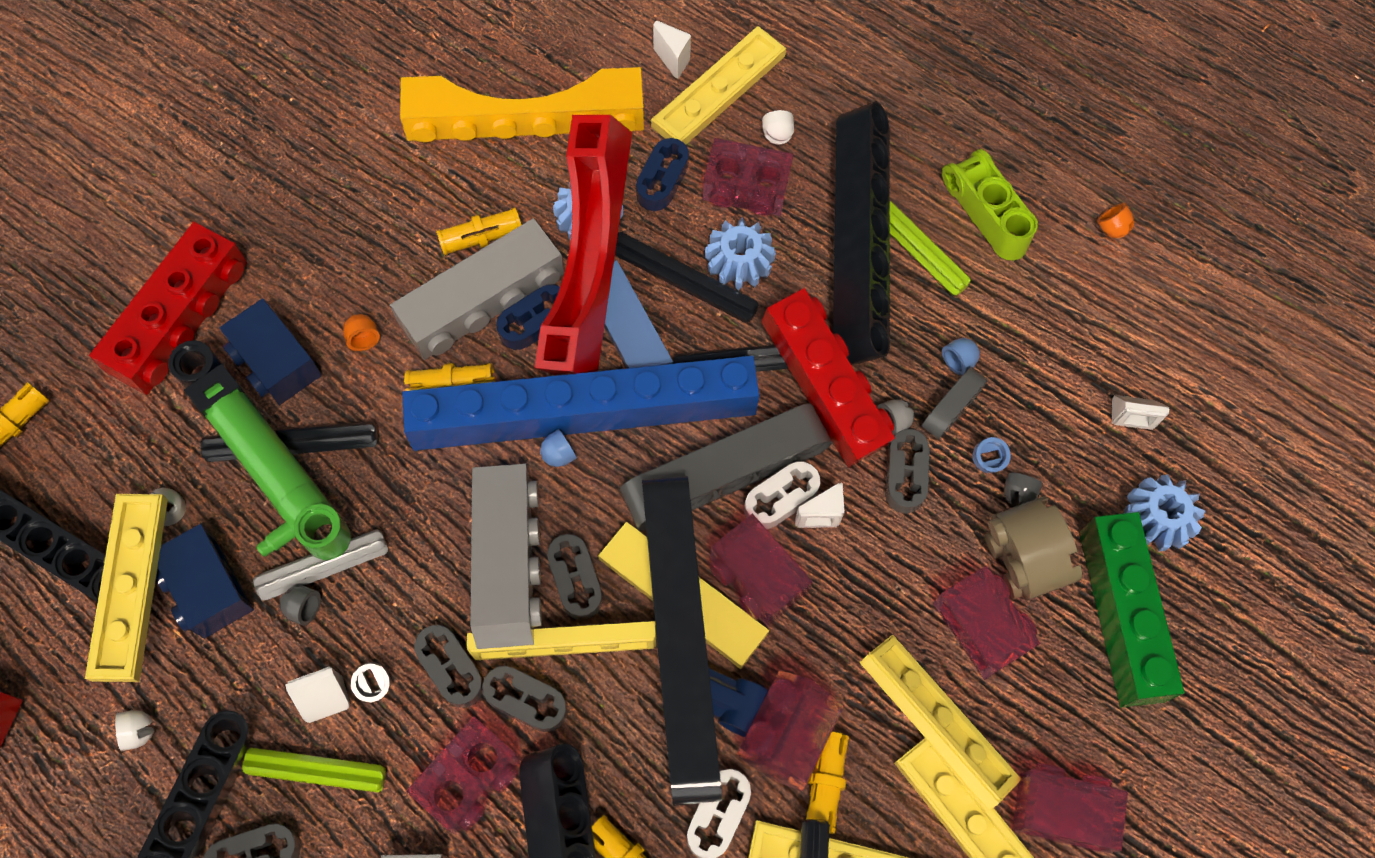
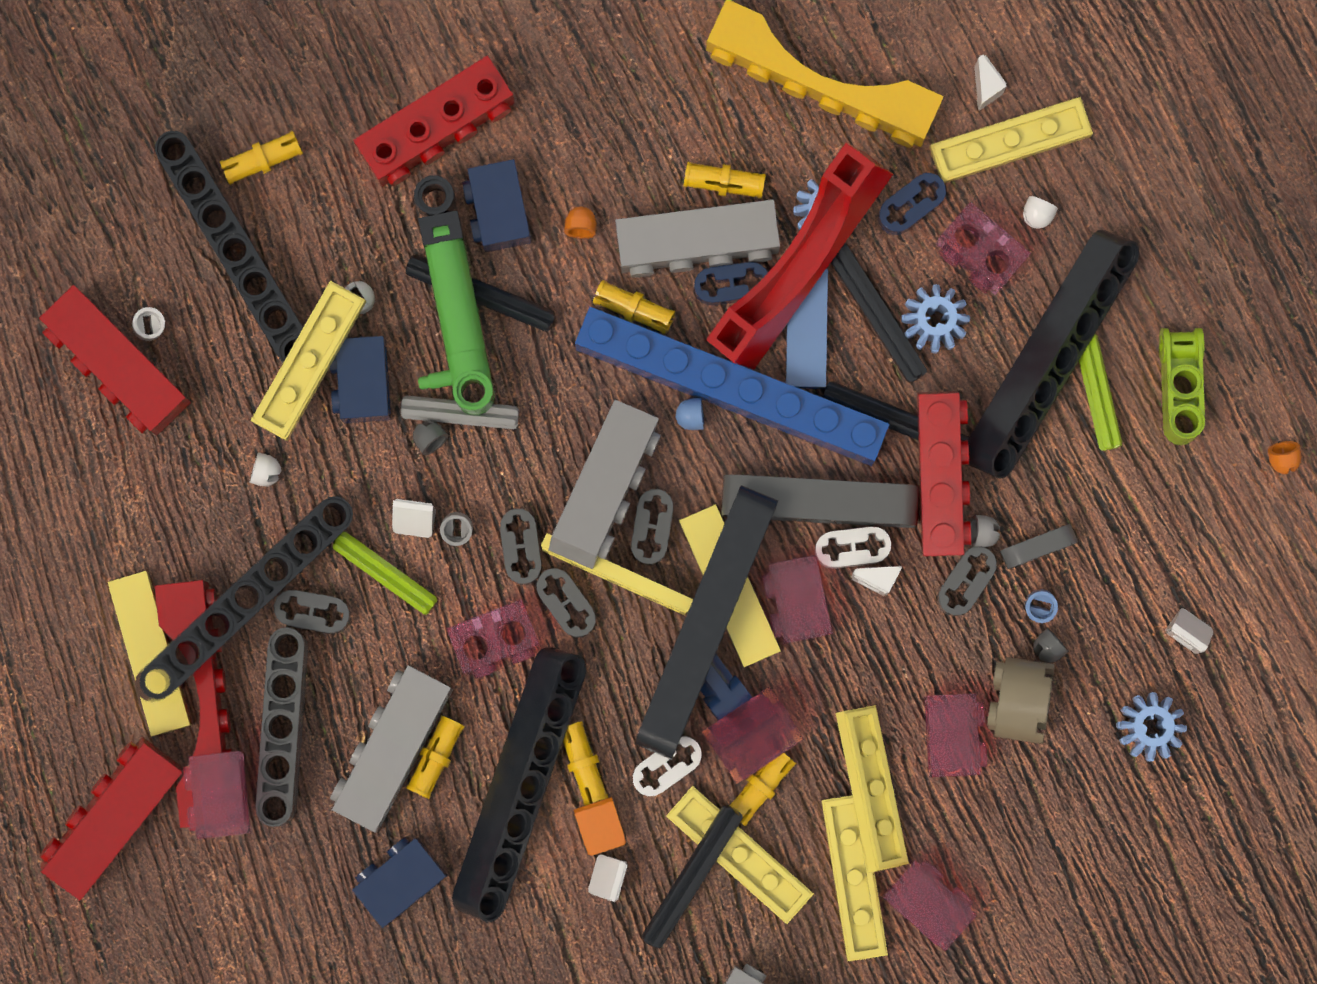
camera: 30 degrees right, 15 degrees up
(961, 355) = (1072, 507): medium blue hinge -> none
(1130, 610) = (1071, 786): green brick -> none

